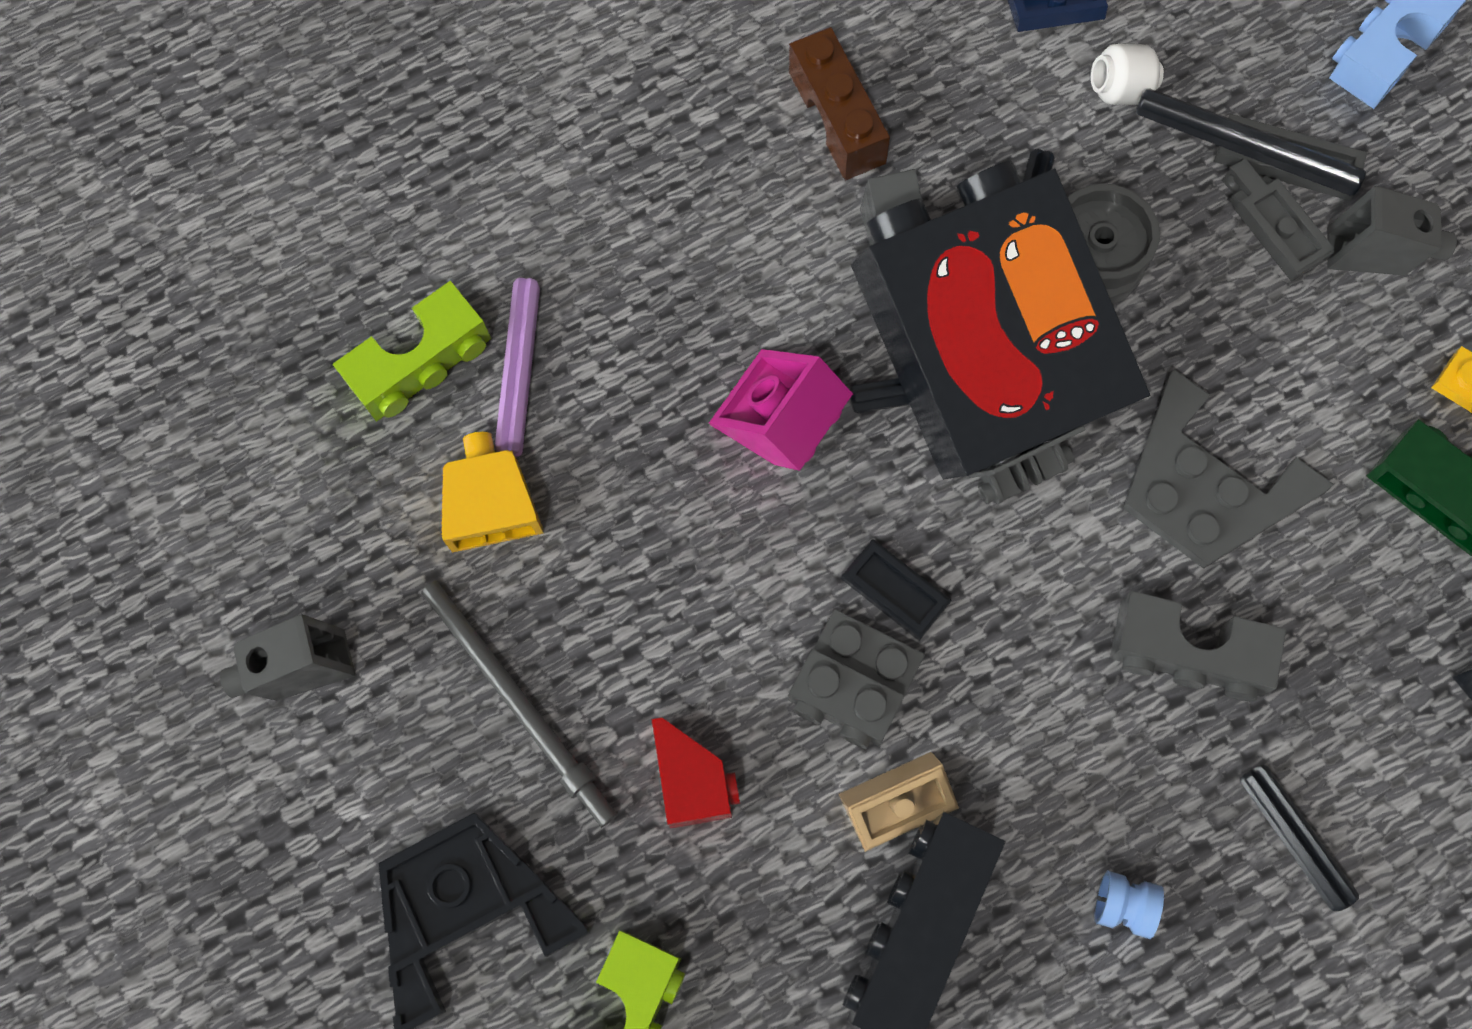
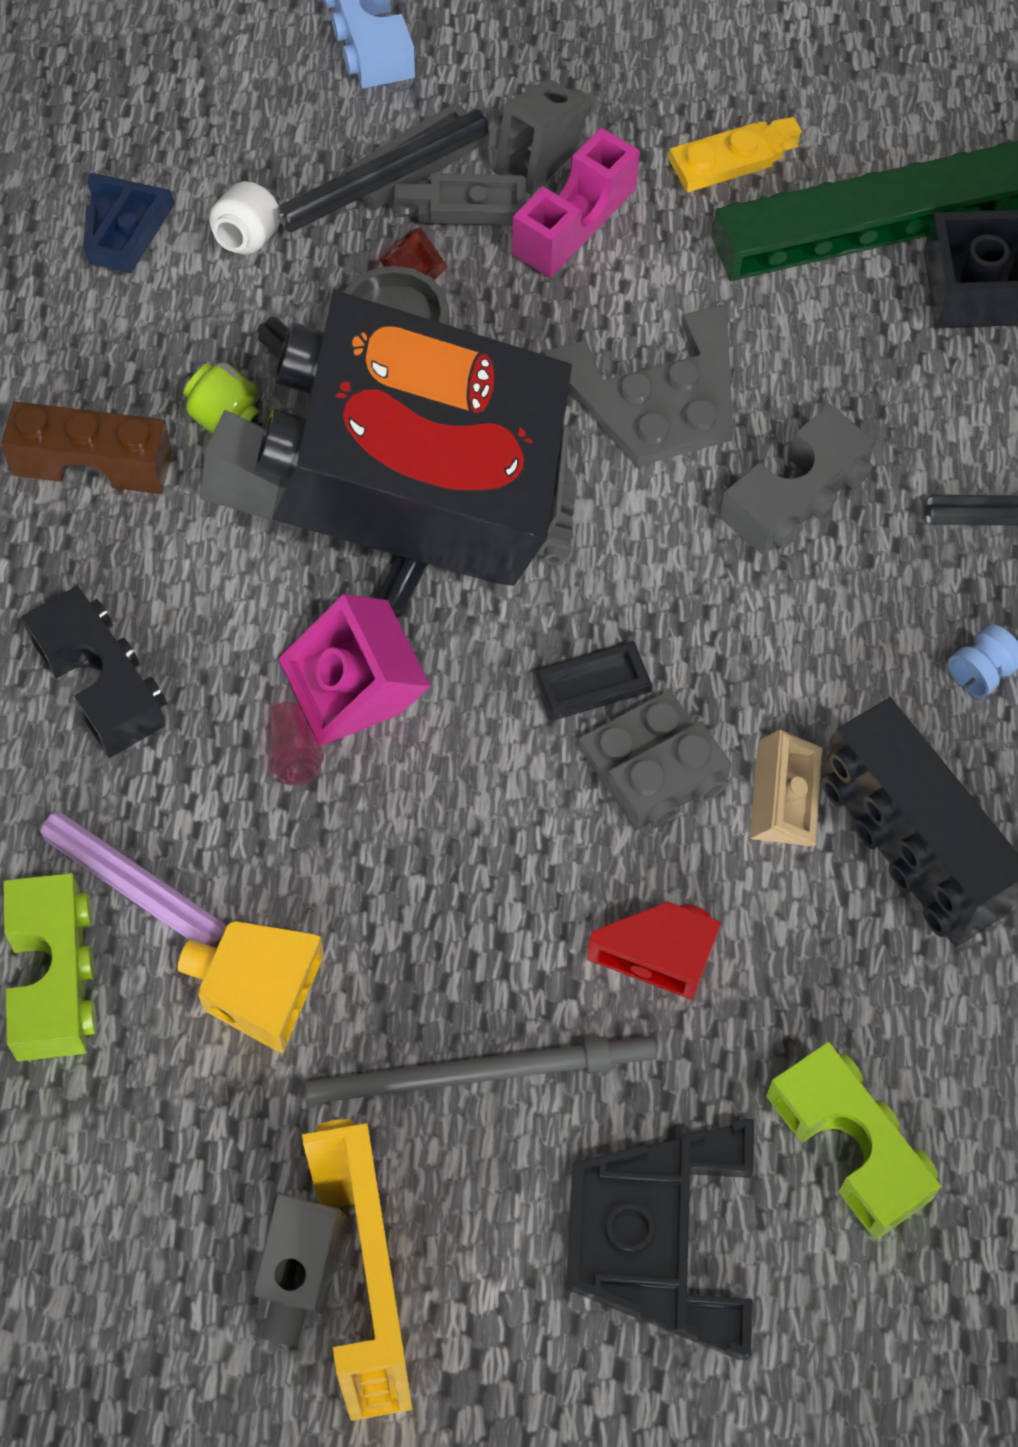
camera: 65 degrees left, 10 degrees down
(268, 718) = (343, 1174): none -> yellow panel
(647, 265) = (76, 634): none -> black arch
(690, 405) = (293, 748): none -> clear pink cone
(946, 163) = (220, 389): none -> lime head
(1183, 220) = (415, 252): none -> clear red plate
(1375, 311) = (555, 225): none -> dark pink arch

